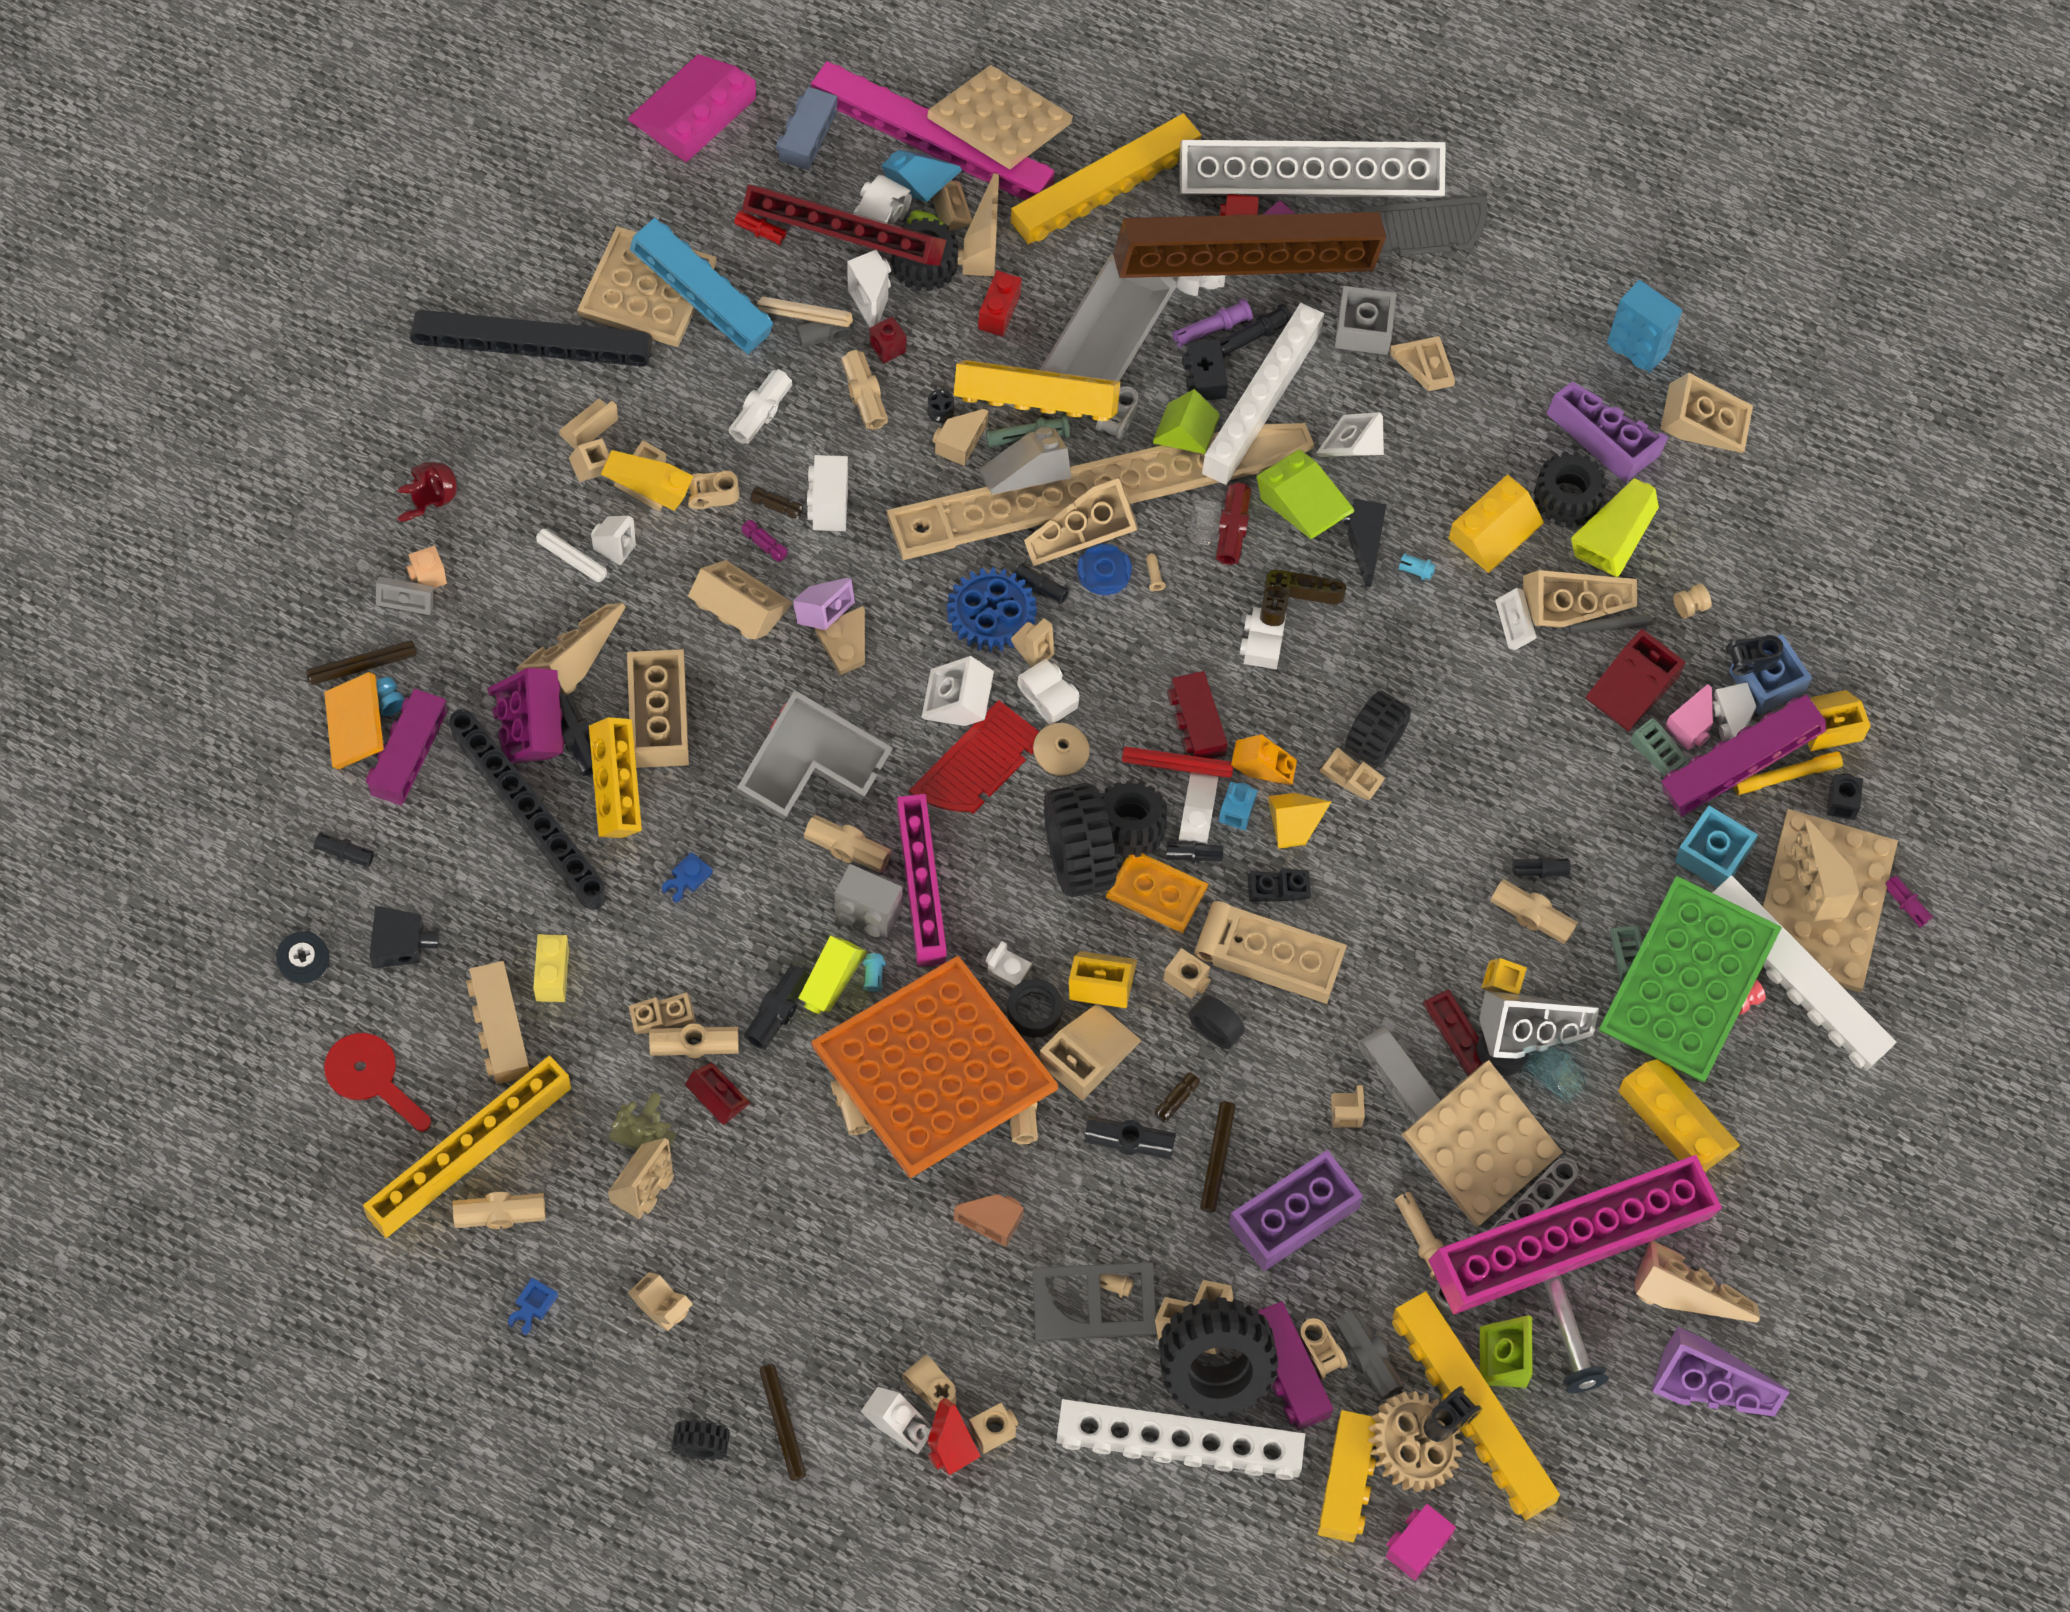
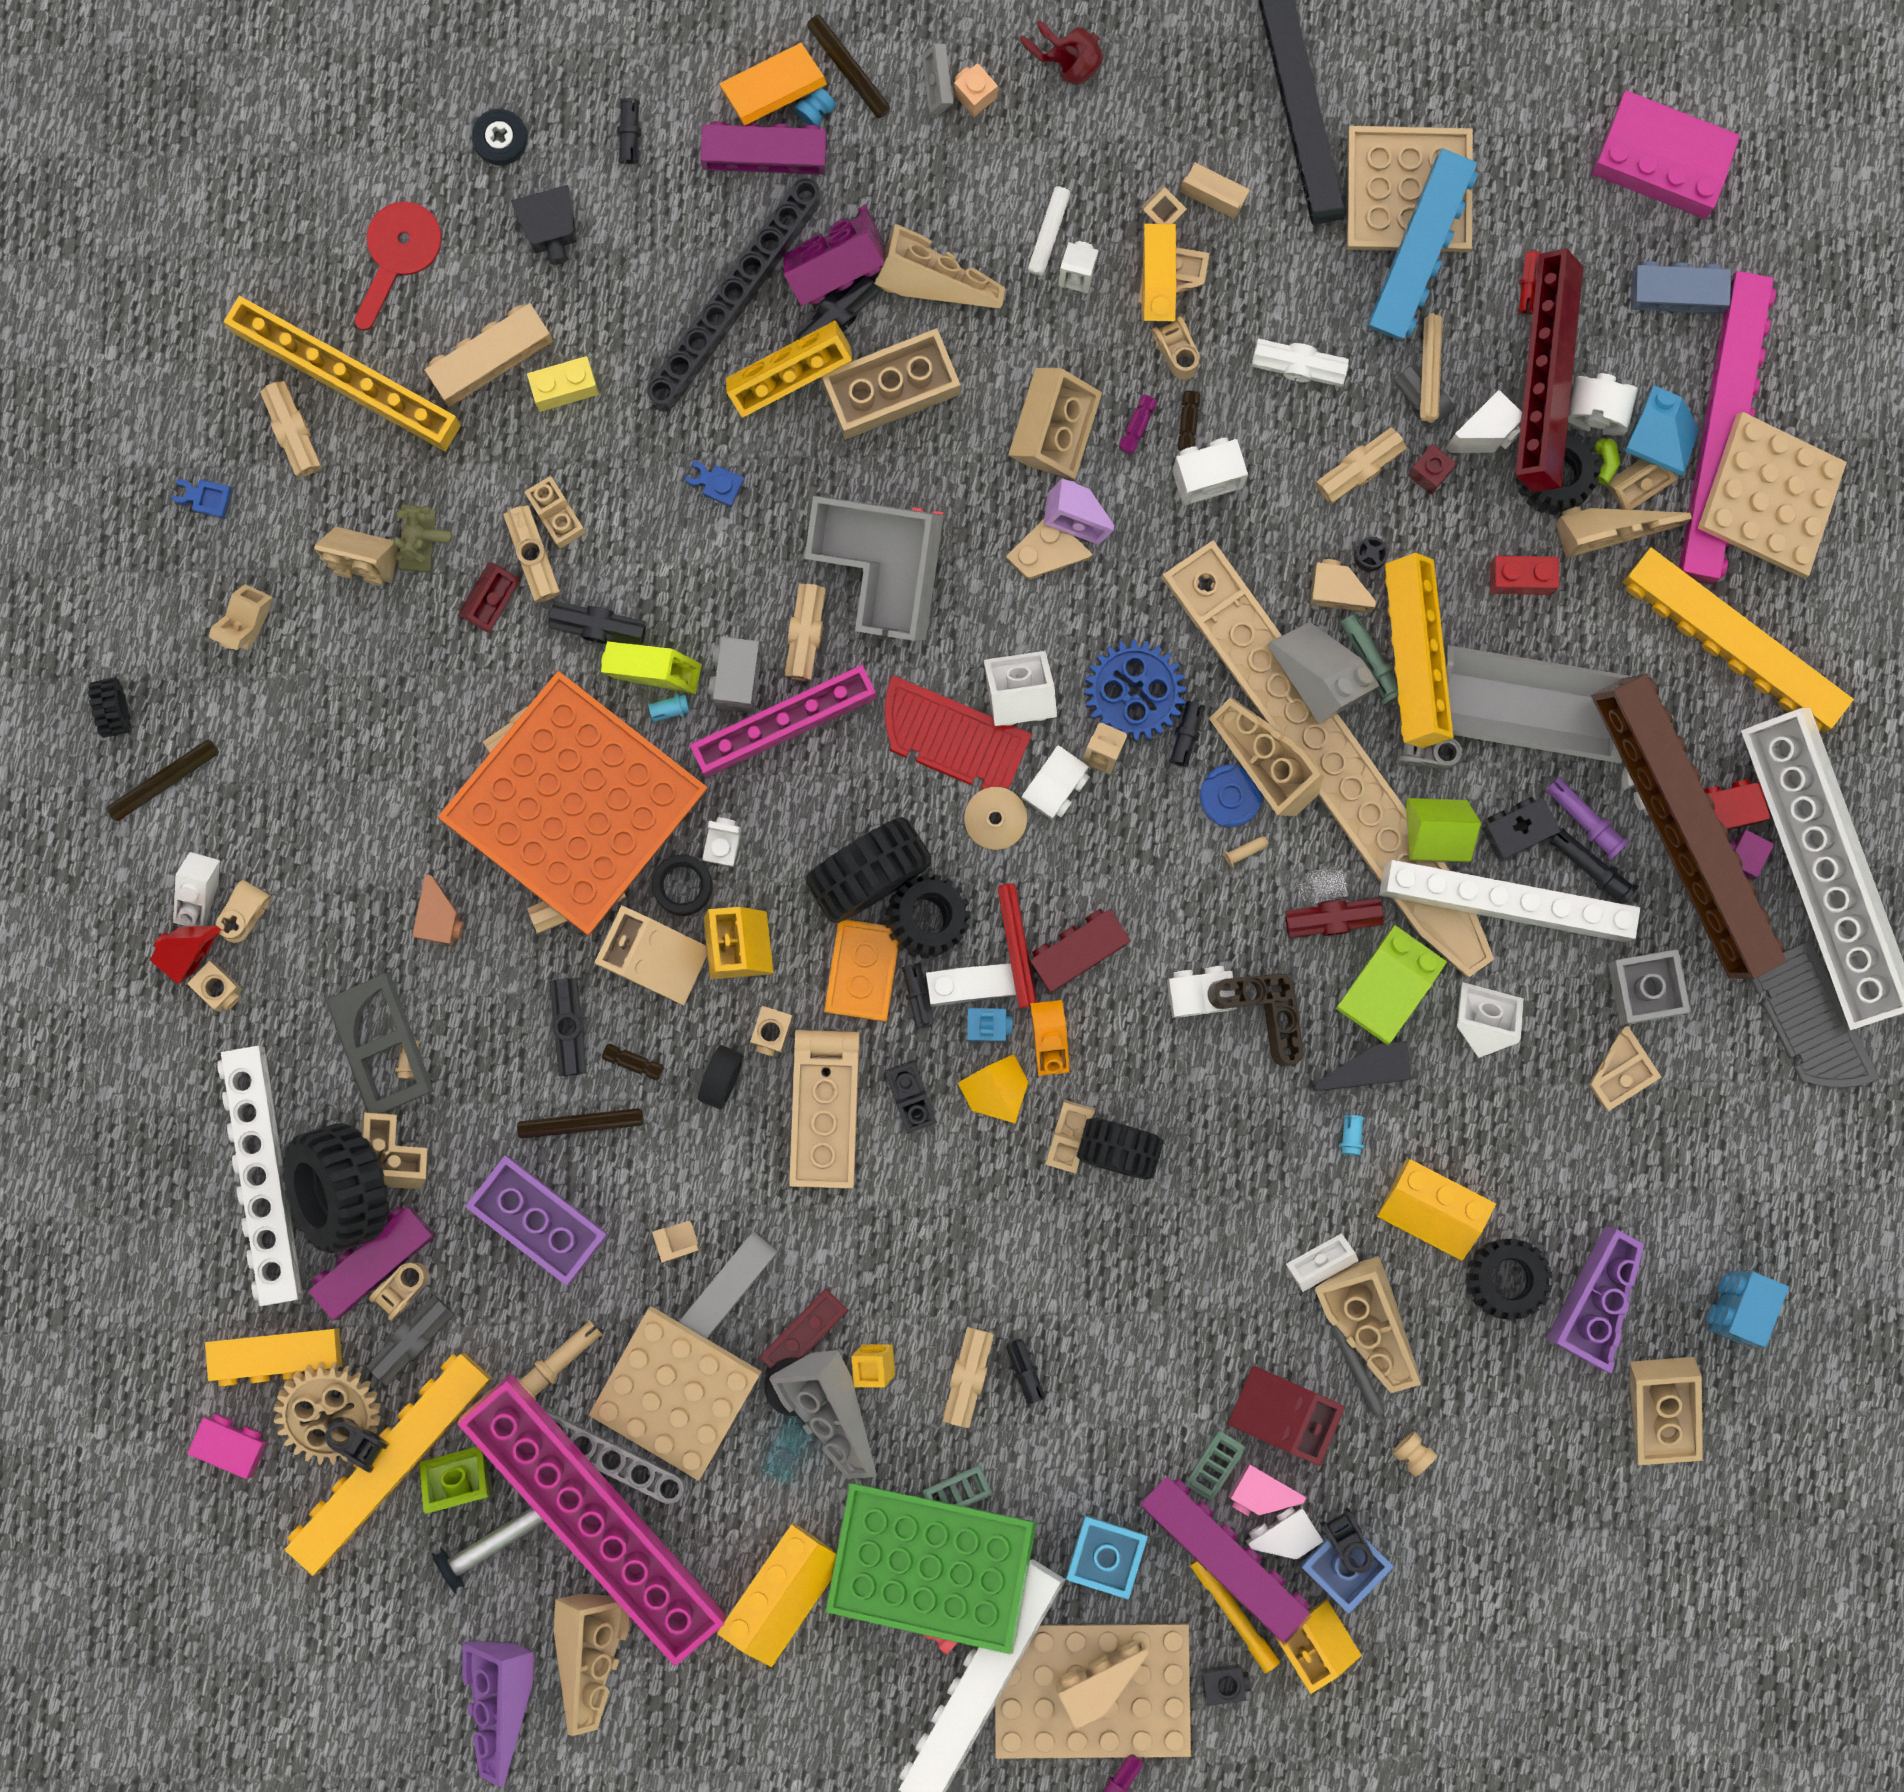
camera: 75 degrees right, 20 degrees up
(1617, 528) = (1476, 1346): neon yellow slope -> none

